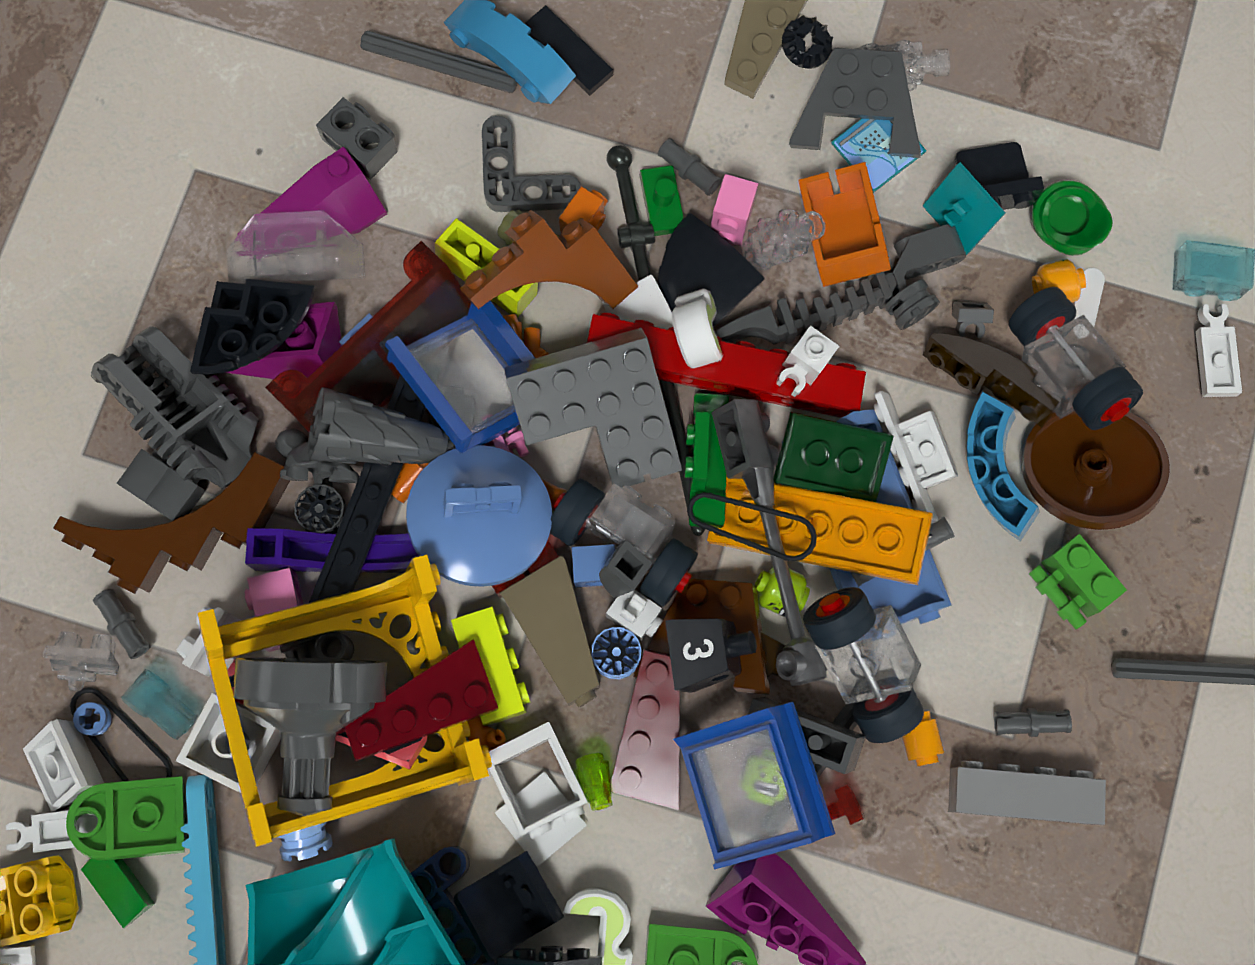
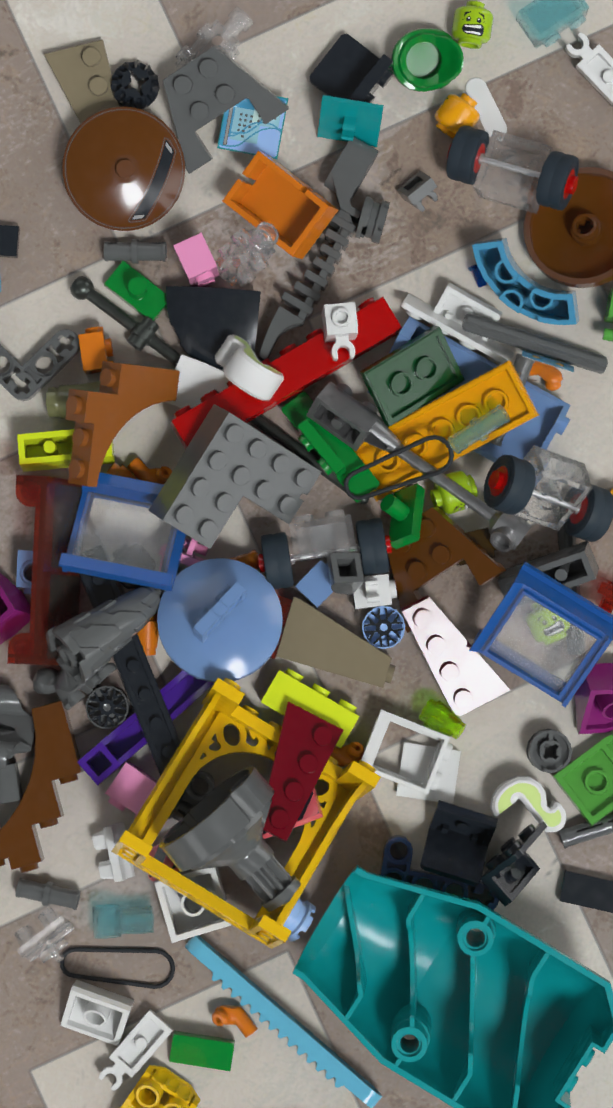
camera: 40 degrees left, 10 degrees up
(99, 727) = (97, 967): medium blue bush -> none
(132, 818) = (175, 1001): bright green tile -> none
(173, 880) = (234, 1016): none -> orange arm
(665, 897) = (549, 750): none -> dark grey wheel
(706, 652) = (443, 578): black torso -> none
(723, 571) = (406, 514): none -> green tile
(739, 93) = (123, 168): none -> reddish brown dish
(853, 549) = (478, 429): none -> clear light blue pin
(954, 561) = (549, 374): none -> orange arm
(963, 429) = (478, 276): none -> clear blue piece
(965, 525) = (534, 343): none -> dark grey axle
(965, 551) = (547, 361): none -> dark azure sticker
(982, 366) = (453, 223): dark brown slope -> none
(1135, 223) = (472, 25): none -> lime head

